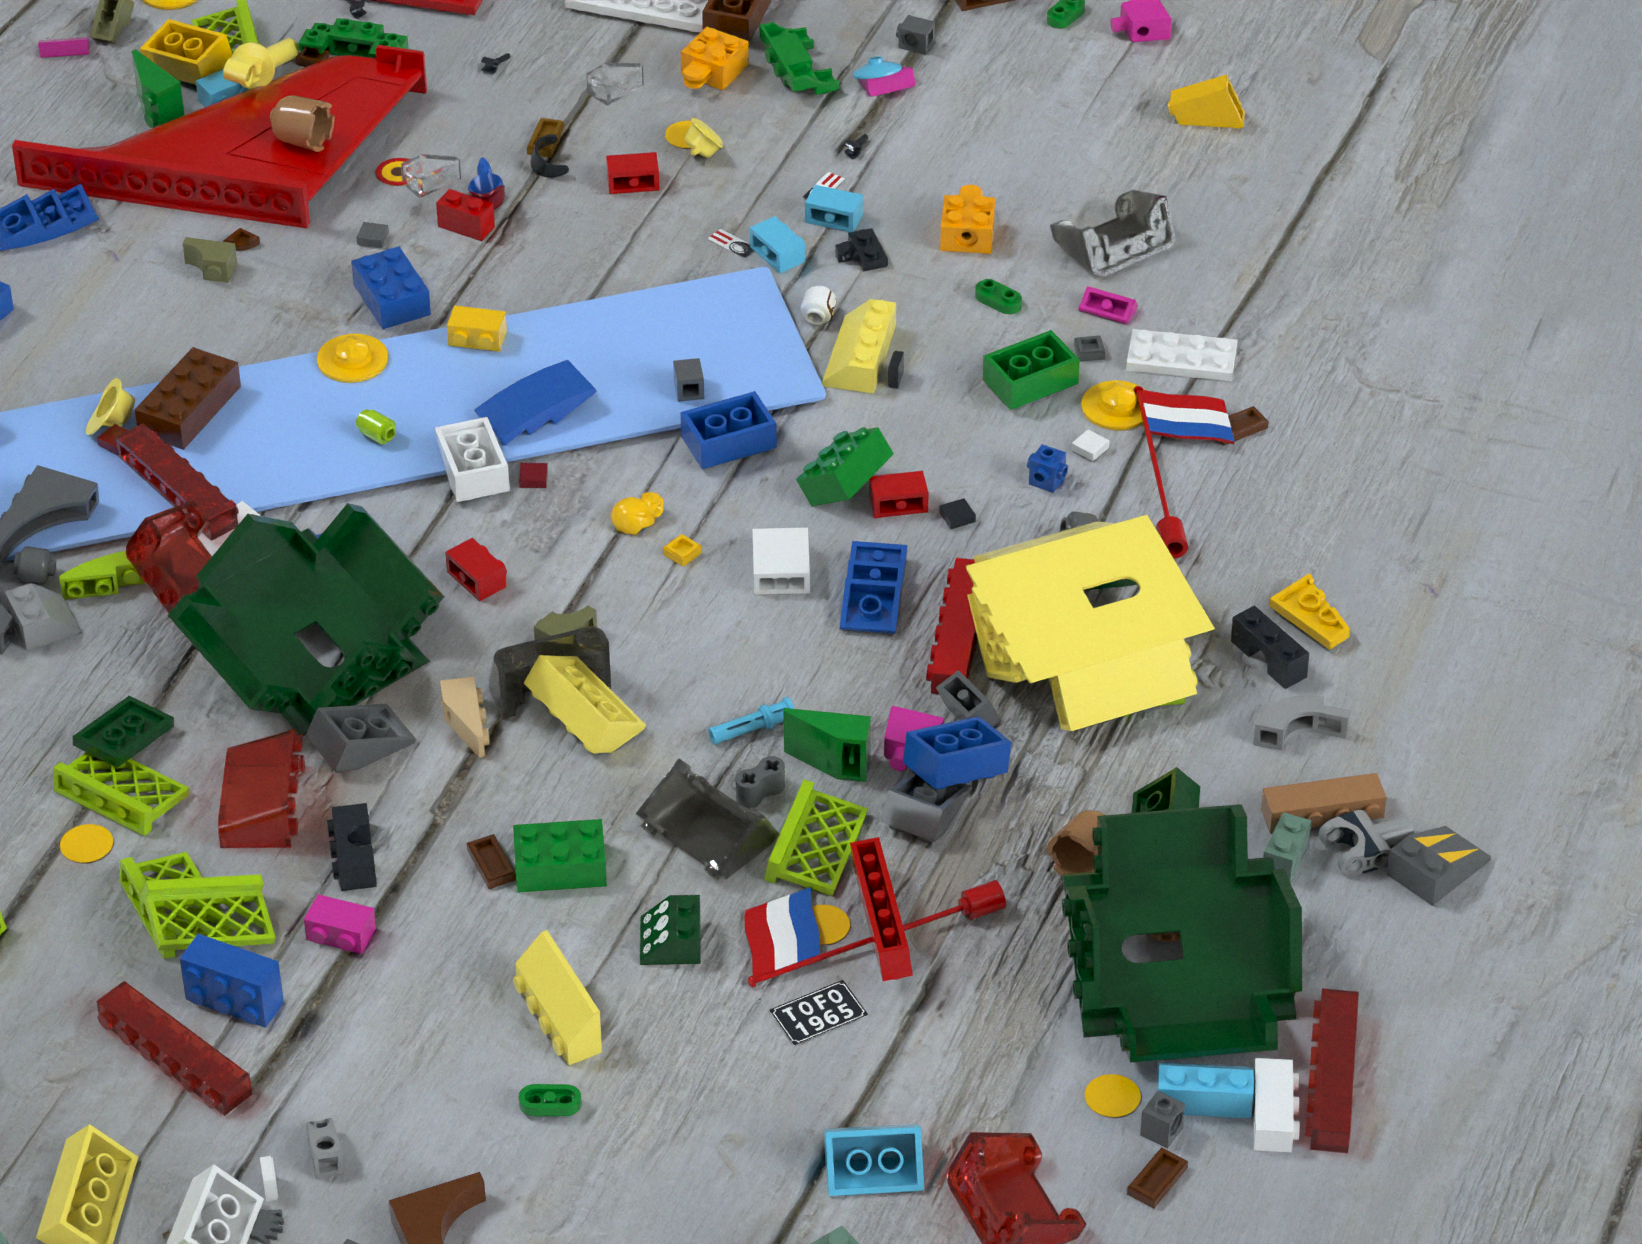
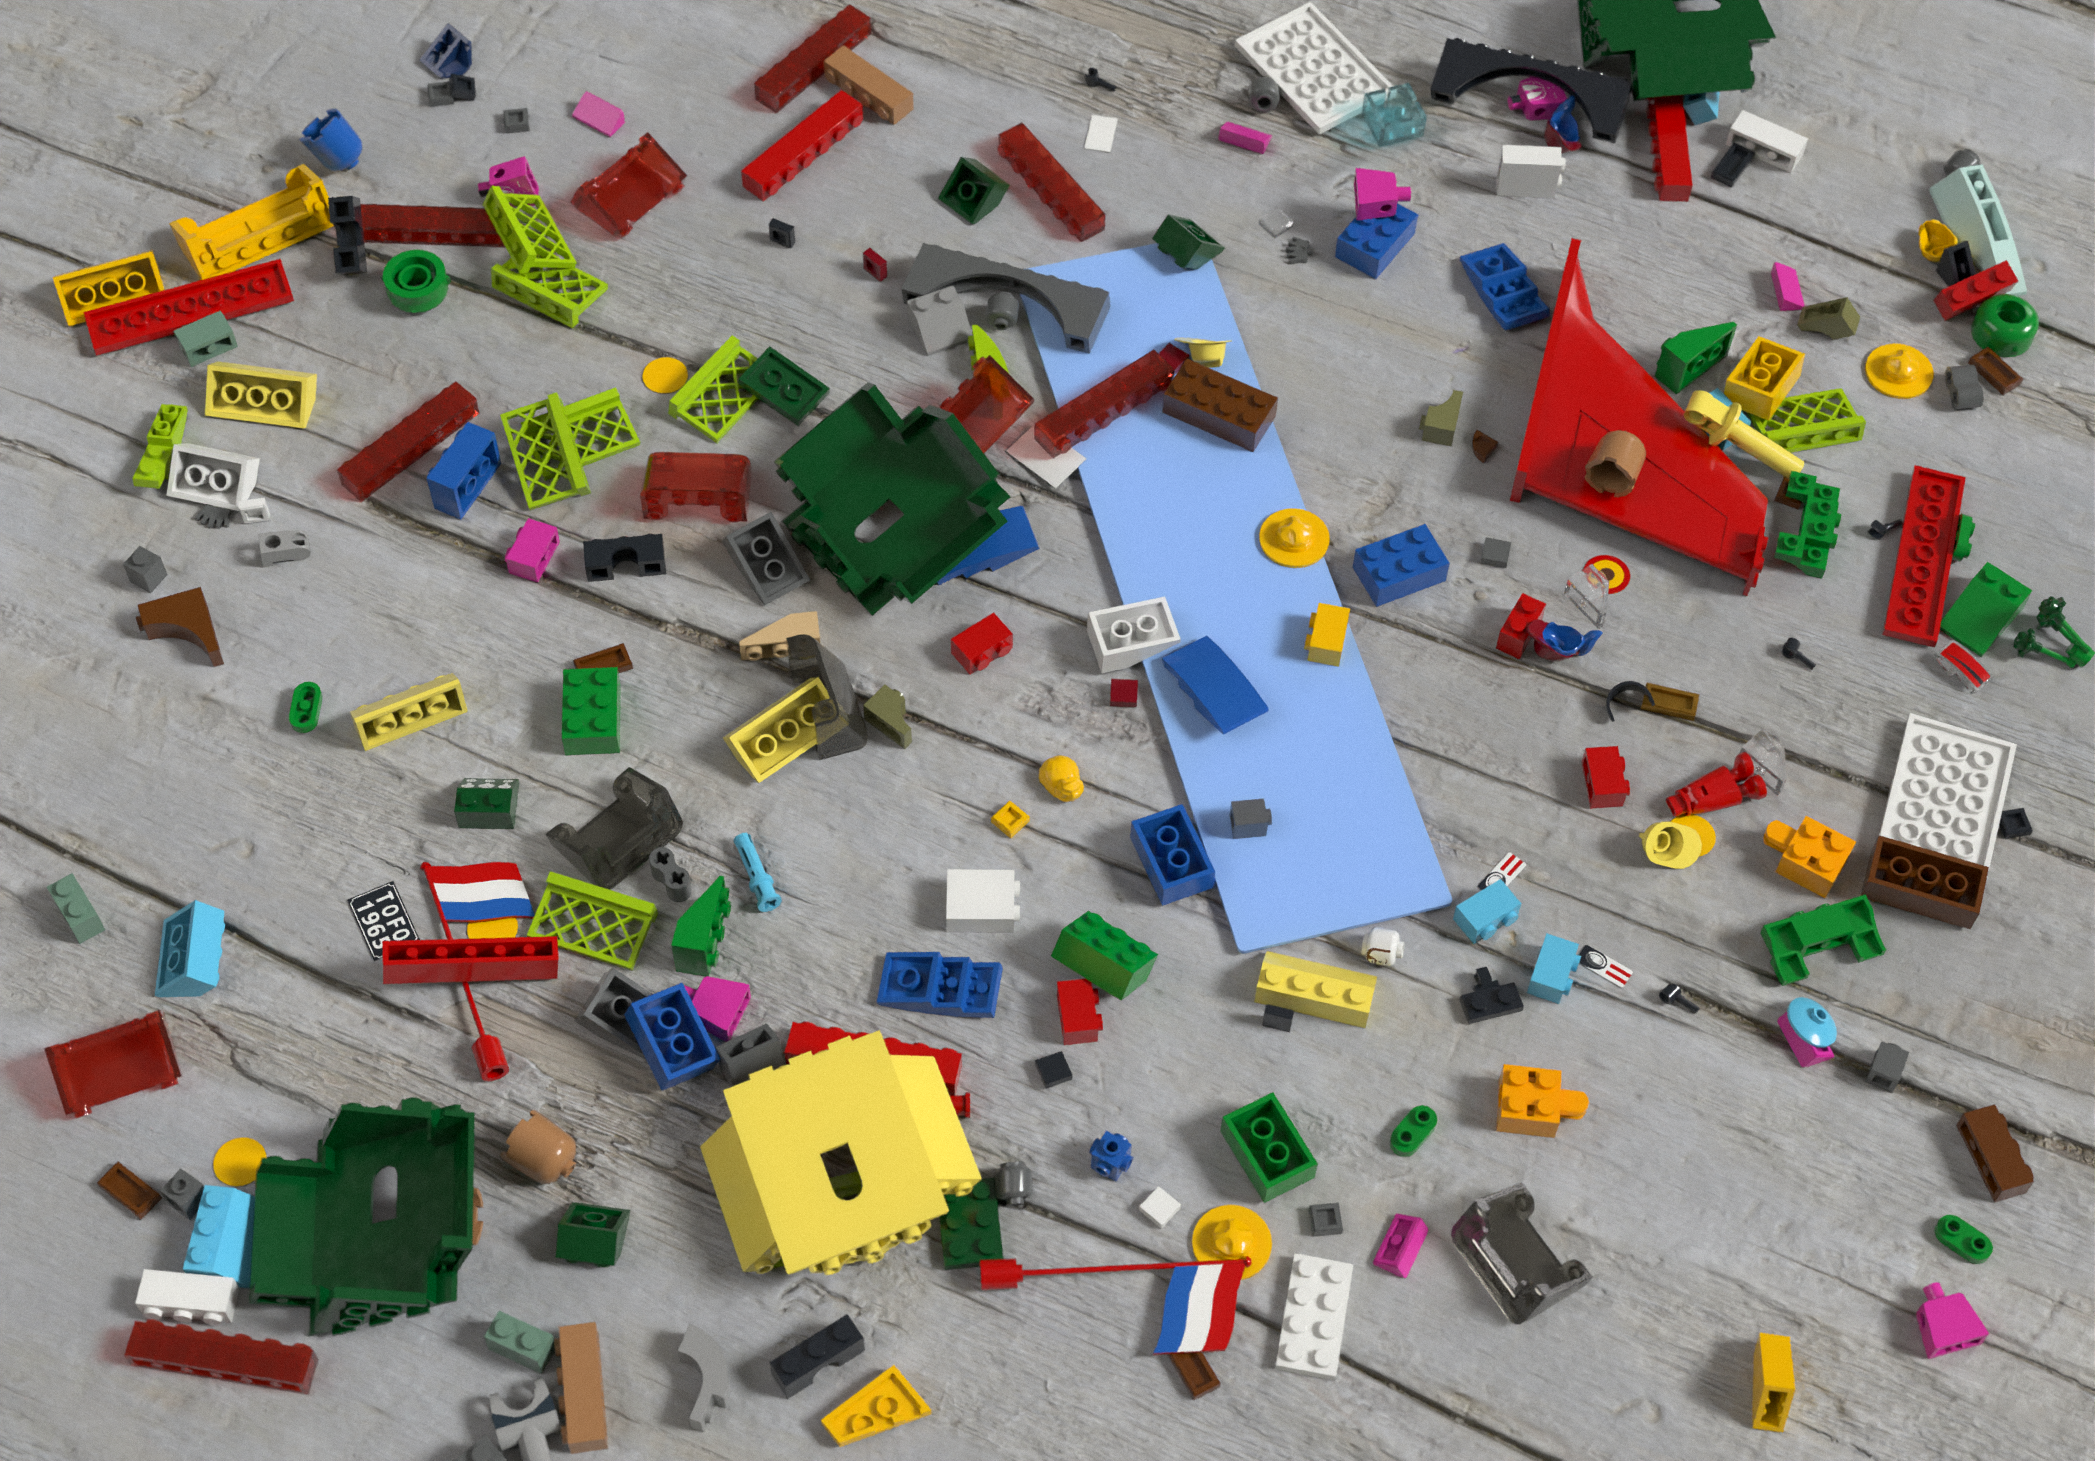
camera: 90 degrees right, 15 degrees up
(376, 426) = (1180, 554): lime brick -> none
(642, 107) = (1719, 789): none -> red piece

